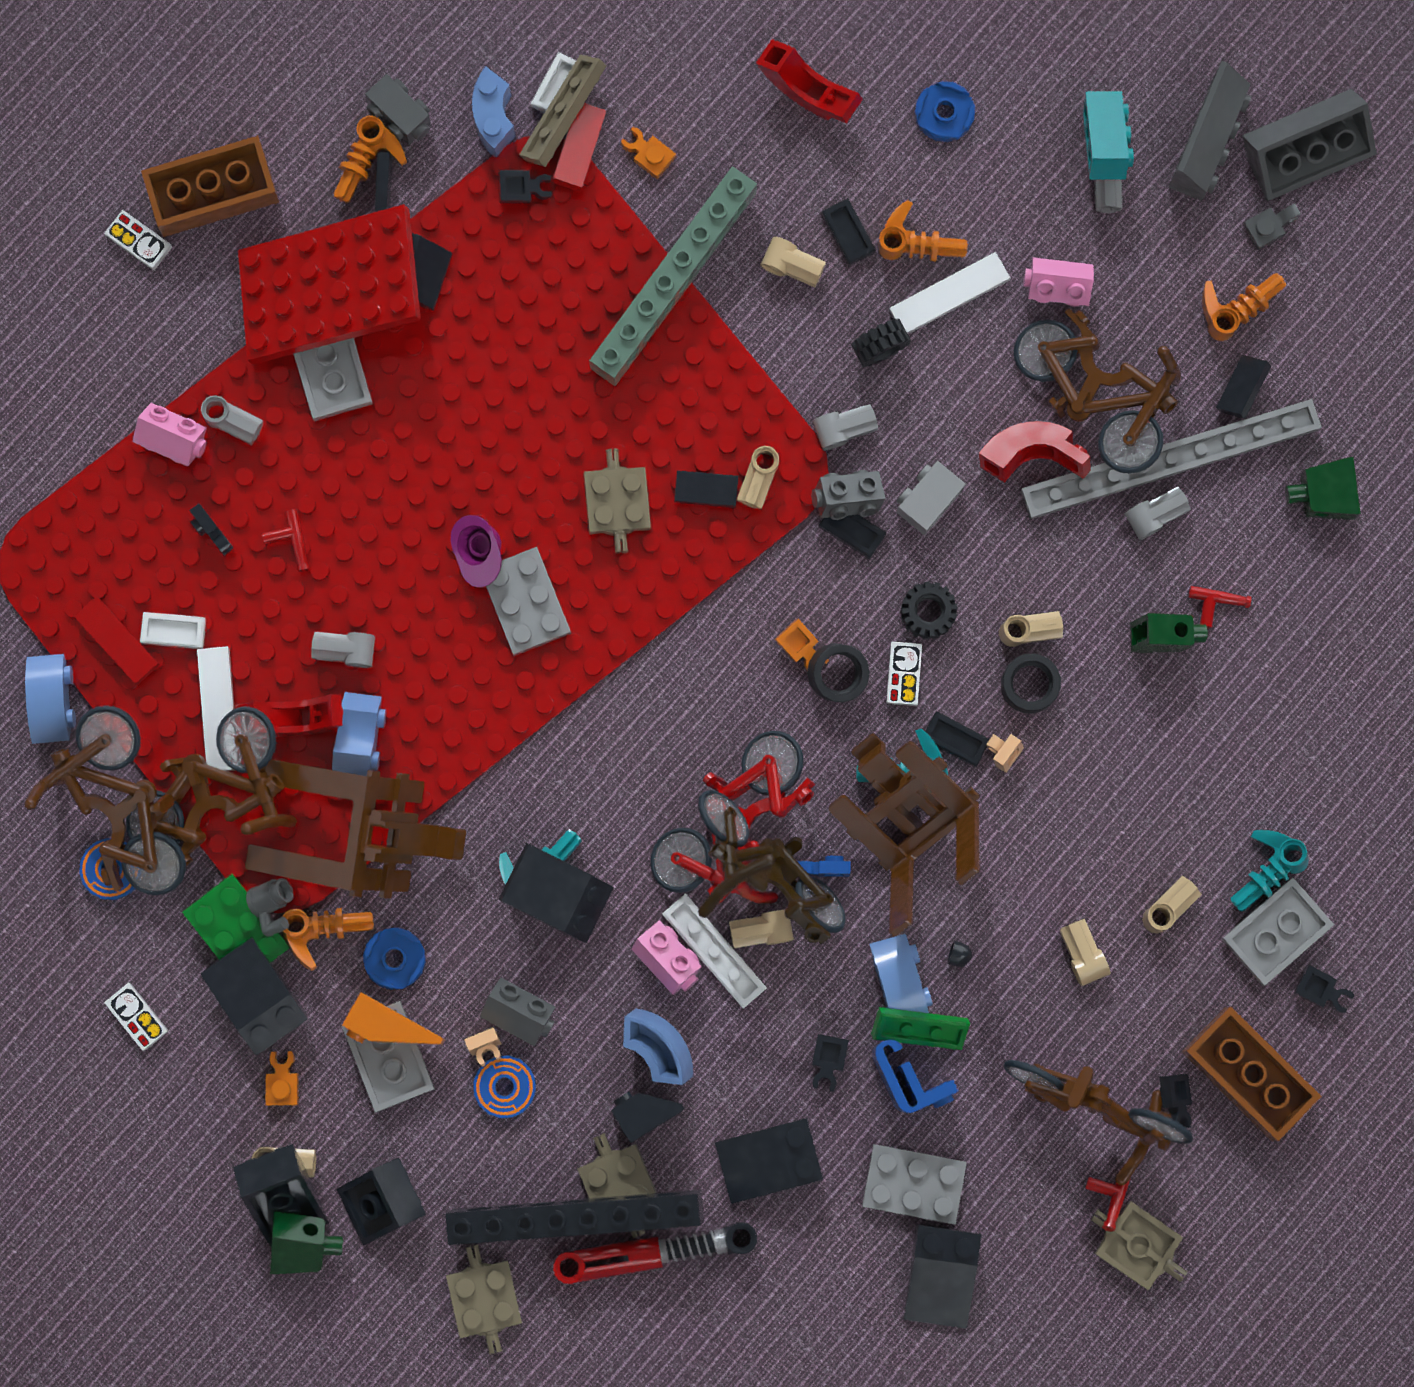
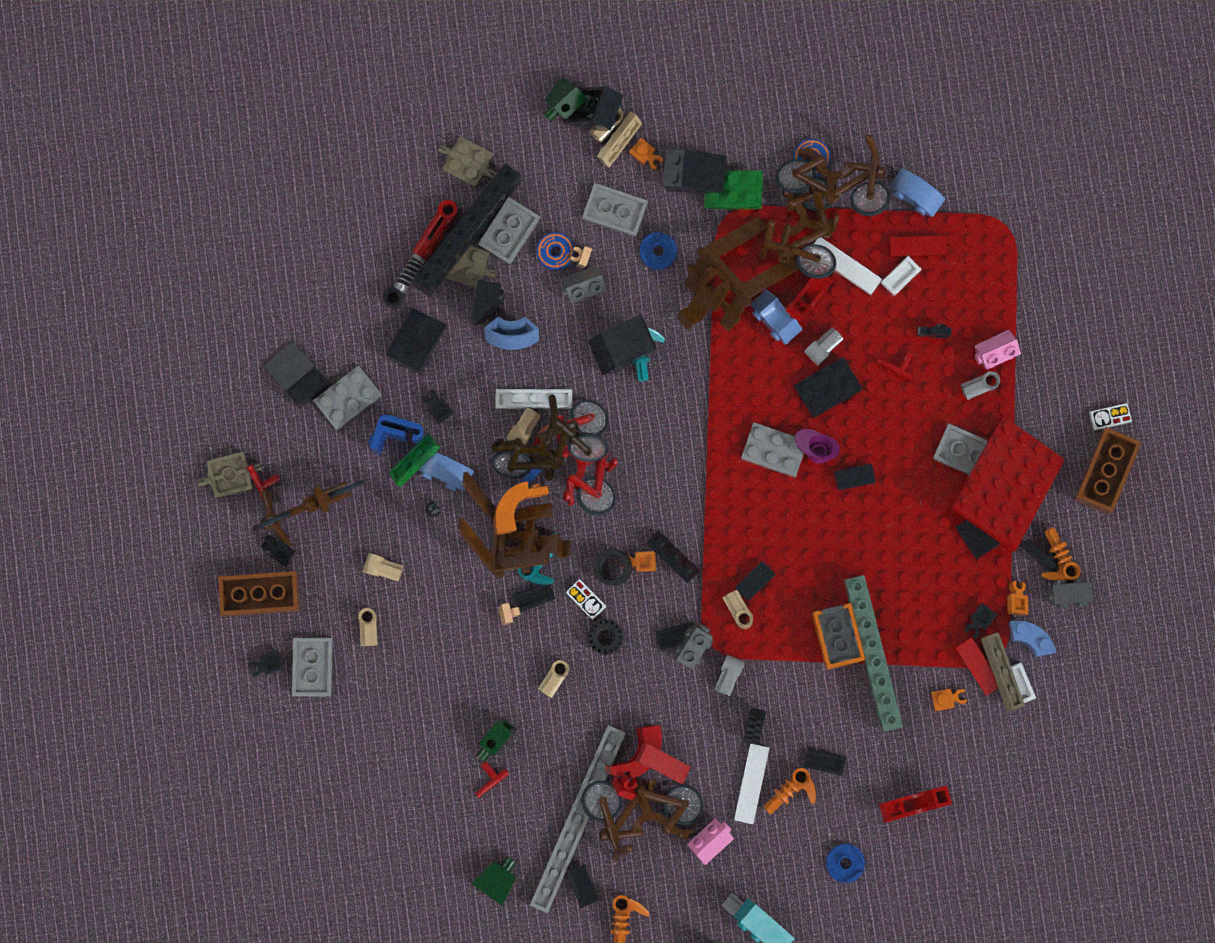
camera: 135 degrees right, 0 degrees up
(136, 1016) = (732, 113): tile -> none
(268, 898) = (734, 213): dark grey piece -> none
(291, 1130) = (619, 139): none -> tan plate
(319, 925) = (703, 227): orange piece -> none
(379, 1023) = (629, 218): orange slope -> none
(381, 1201) = (551, 152): black slope -> none
(391, 601) = (828, 387): none -> black plate
(461, 165) = (1017, 602): none -> orange plate
(475, 477) = (854, 477): none -> black tile
(528, 1166) = (509, 231): none -> light grey plate
(617, 500) = (785, 533): dark tan plate -> none
(667, 957) = (548, 373): bright pink brick -> none
(689, 331) = (838, 636): none -> dark grey piece
(762, 612) = (673, 557): none -> black plate
(784, 259) = (835, 718): tan piece -> none
(872, 861) = (504, 511): none -> orange arch
(930, 497) = (659, 685): light grey brick -> none
(1014, 700) = (526, 640): black tyre -> none
(1020, 411) = (663, 763): none -> red tile
(1089, 429) = (625, 788): none -> red tile
(1151, 516) = (558, 784): light grey piece -> none
(1272, 874) = (340, 690): teal piece -> none

